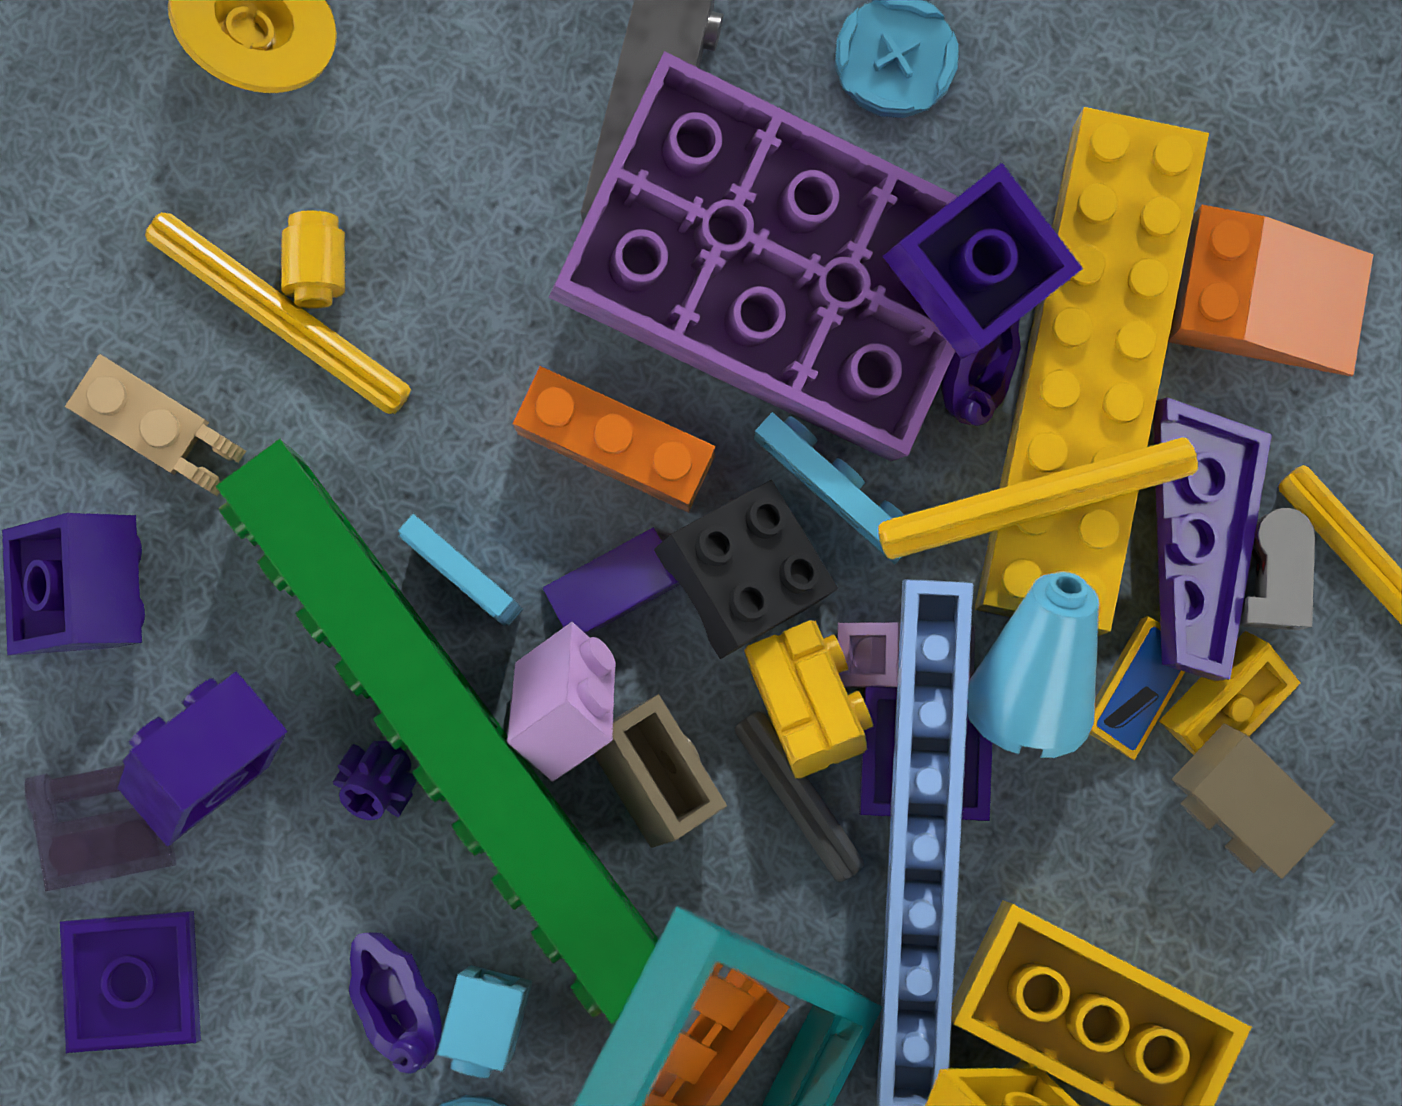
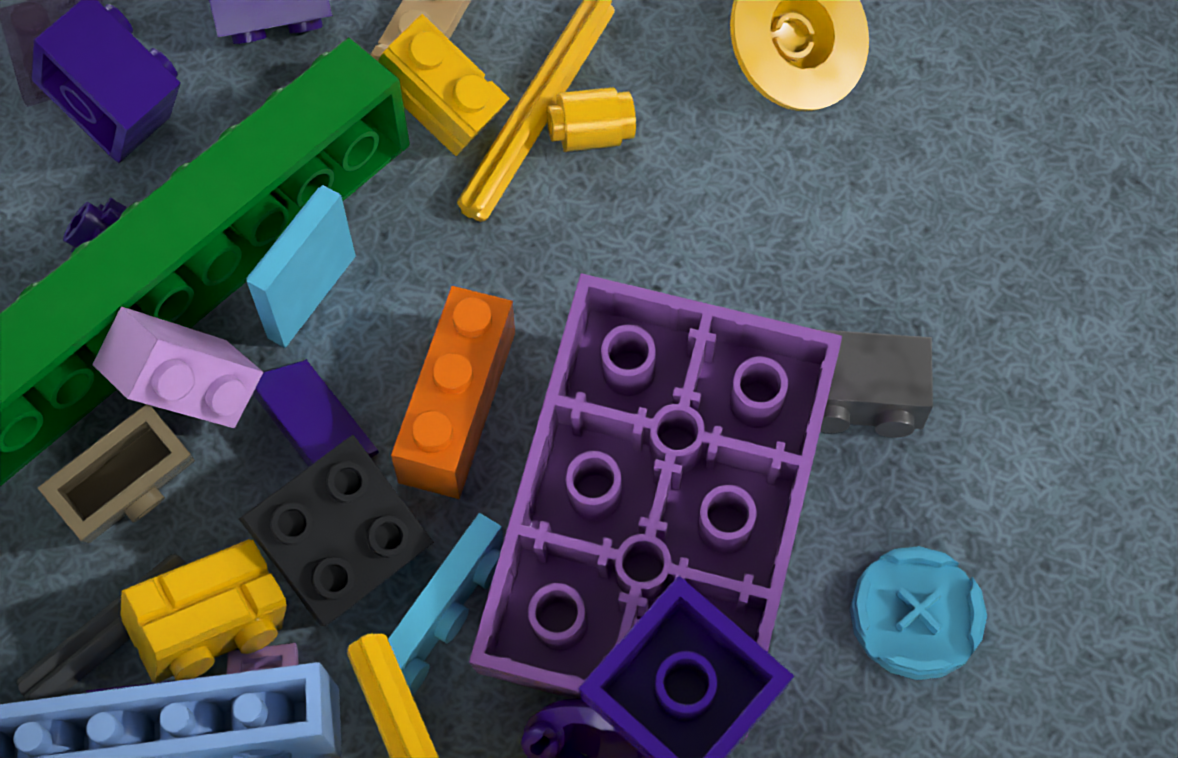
camera: 80 degrees right, 20 degrees down
(258, 407) = (442, 85): none -> yellow brick

